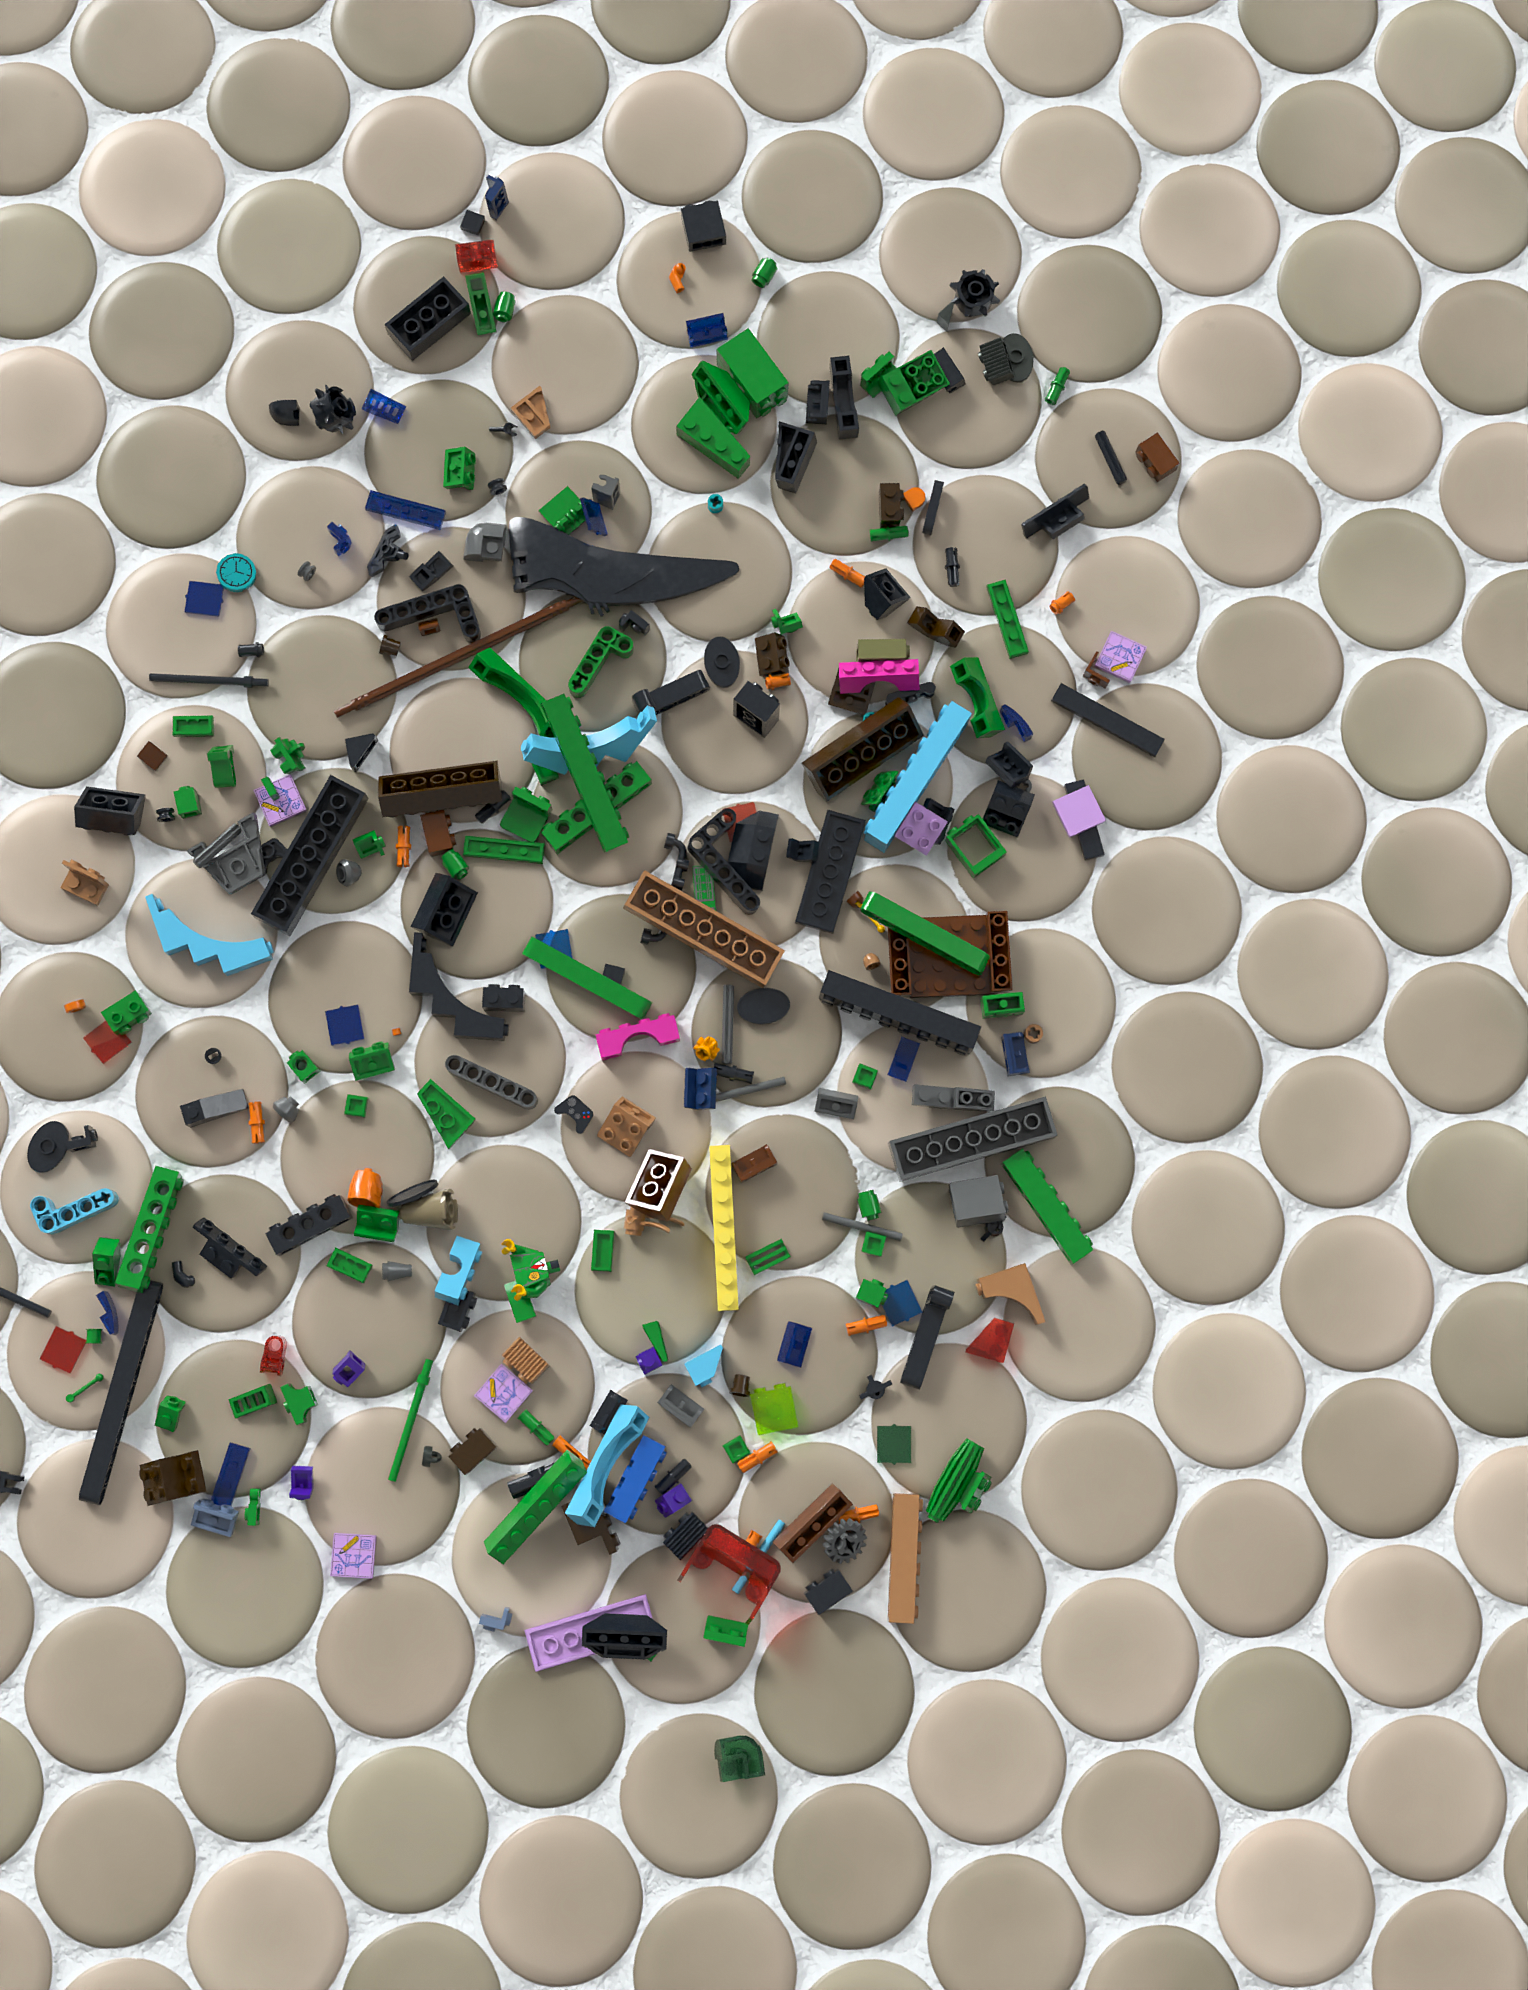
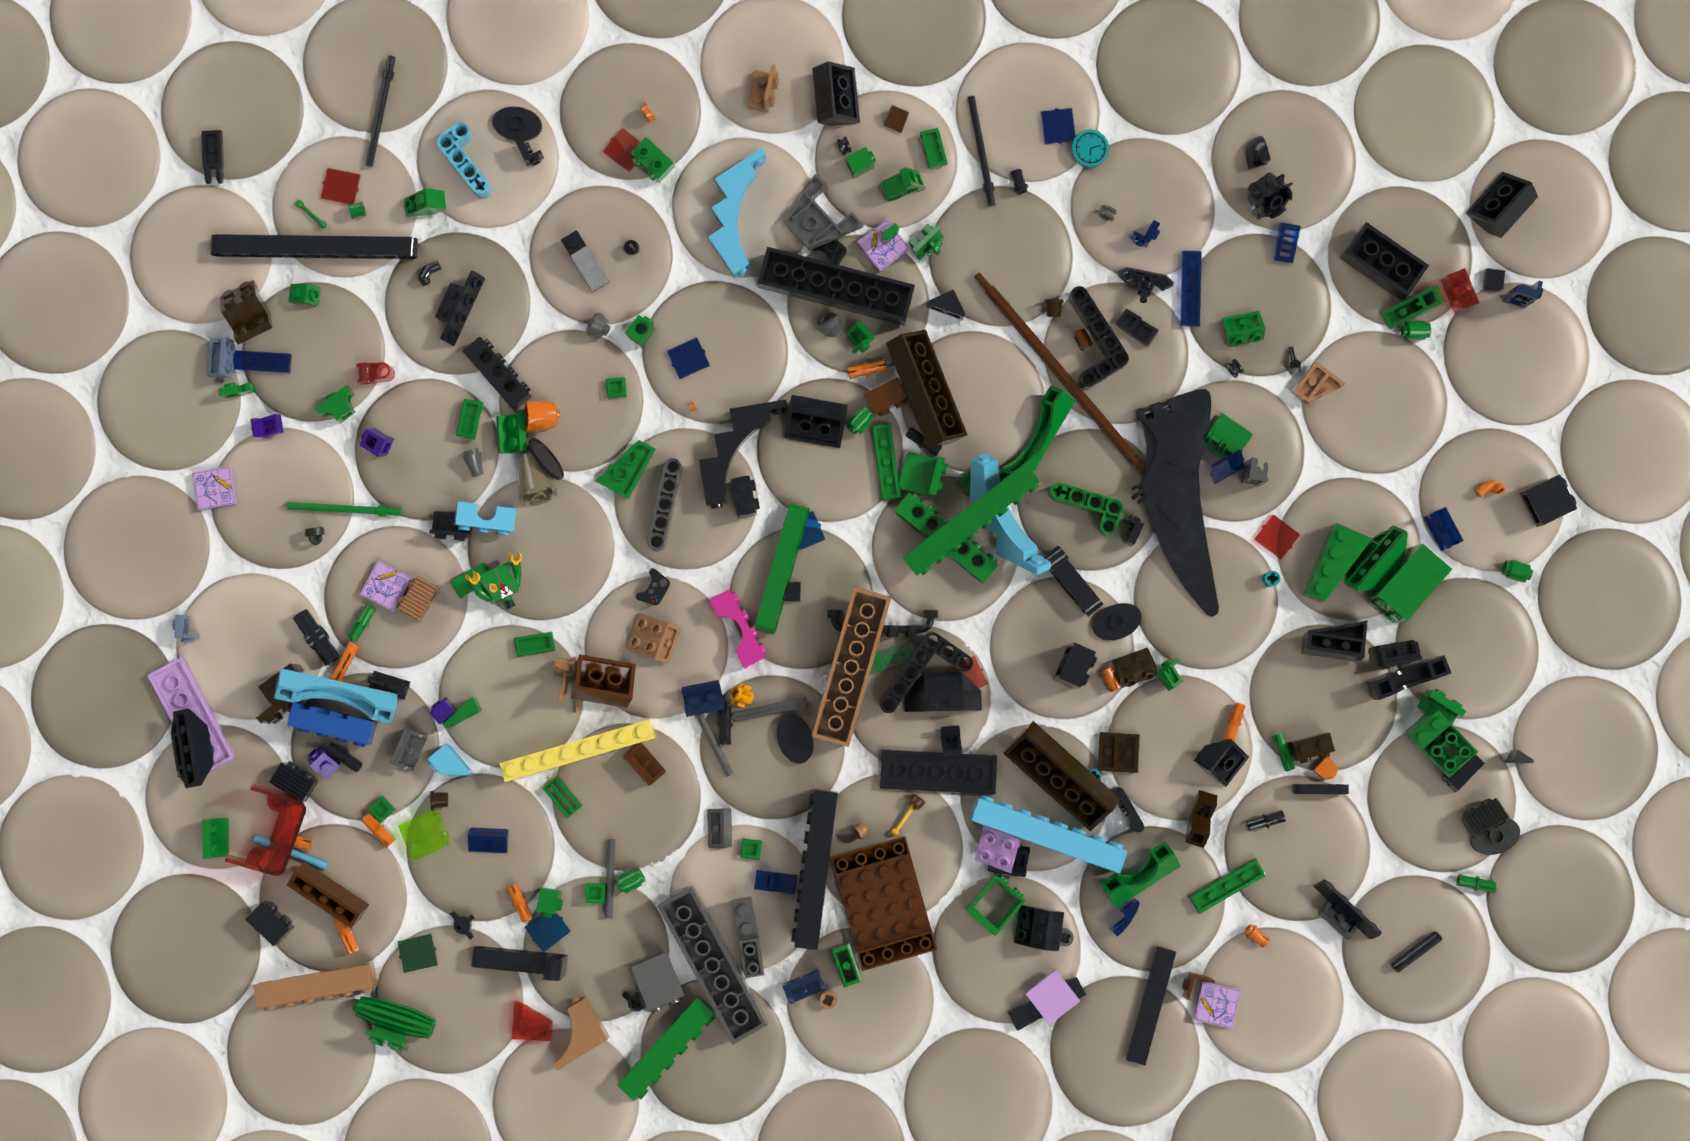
camera: 80 degrees right, 5 degrees up
(110, 1318) = (373, 220): clear blue slope -> none
(160, 1178) = (411, 224): green brick -> none
(217, 845) = (825, 199): dark grey axle -> none
(256, 1122) = (580, 302): orange pin -> none
(265, 1396) = (336, 375): green slope -> none
(371, 1060) = (660, 390): green bracket -> none
(400, 195) = (1502, 204): none -> black slope
(472, 1451) = (327, 571): dark brown brick -> none
(485, 542) = (1177, 371): dark grey brick -> none
(535, 1507) = (287, 640): green brick -> none
(675, 488) = (1277, 536): none -> clear red piece
(738, 1758) = (106, 876): clear green brick -> none
(844, 1540) = (318, 928): dark grey gear -> none
(882, 650) = (1159, 773): olive brick -> none
(882, 784) = (1030, 801): green hinge -> none
(901, 673) = (1143, 794): dark pink arch -> none
(924, 933) = (895, 875): green beam -> none
(974, 293) = (1560, 781): black brick -> none
(1010, 765) = (1081, 921): black bracket -> none
(1157, 457) = (1427, 997): reddish brown brick -> none

